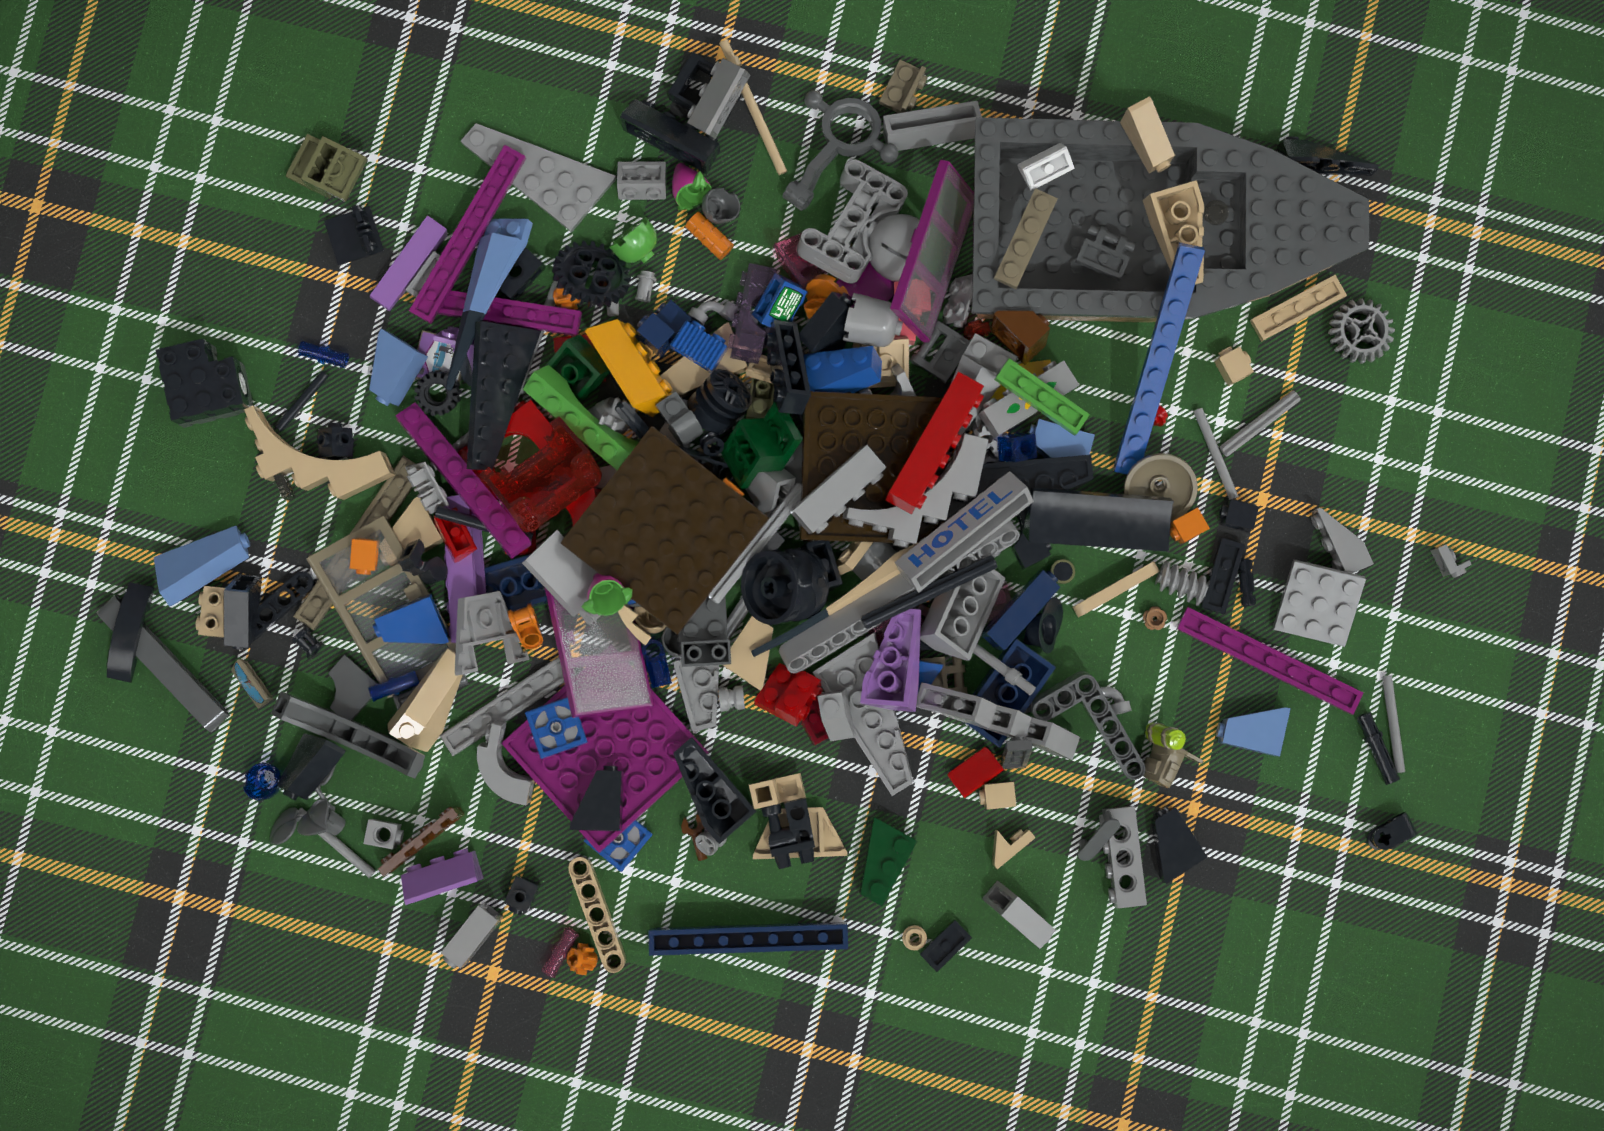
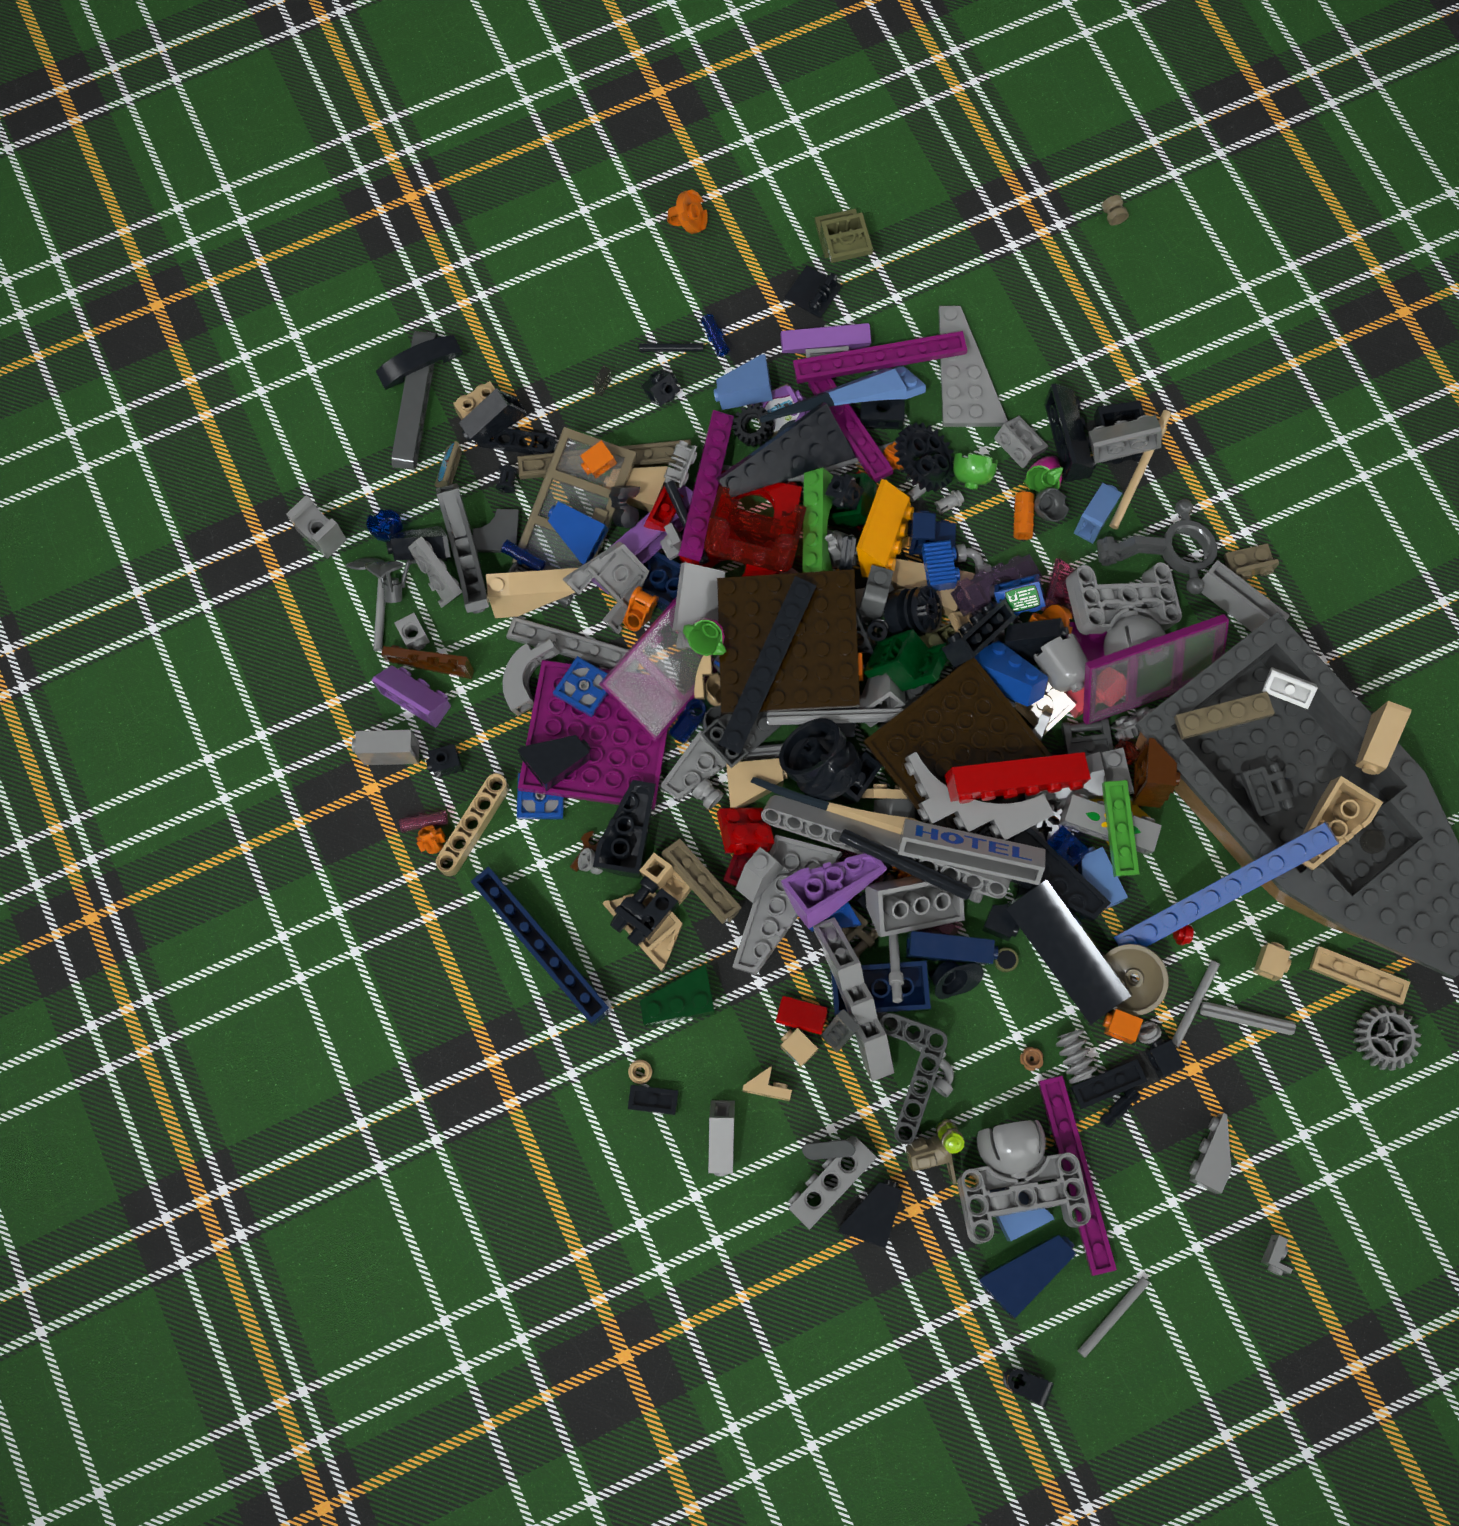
camera: 60 degrees right, 10 degrees down
(187, 281) = (688, 212): none -> orange tile
(199, 563) = (502, 366): medium blue slope -> none
(200, 385) = (627, 274): black piece -> none
(201, 843) = (309, 519): none -> light grey piece
(345, 476) = (640, 410): tan arch -> none
(357, 775) = (439, 578): none -> light grey wing
(490, 550) = (671, 542): none -> light grey bracket
(570, 372) = (844, 491): none -> black brick
(673, 565) = (767, 665): none -> black plate
(759, 173) = (1097, 512): none -> medium blue slope
(802, 764) = (701, 881): none -> dark tan fence
(837, 489) = (922, 735): light grey brick -> none
(1116, 589) = (1028, 1010): tan beam -> none
(1210, 510) = (1149, 1033): none -> light grey plate
(1222, 696) = (1015, 1154): none -> light grey beam
(1312, 763) = (1026, 1275): none -> dark blue slope
(1319, 603) = (1154, 1176): light grey plate -> none
(1378, 748) = (1082, 1323): black pin -> none

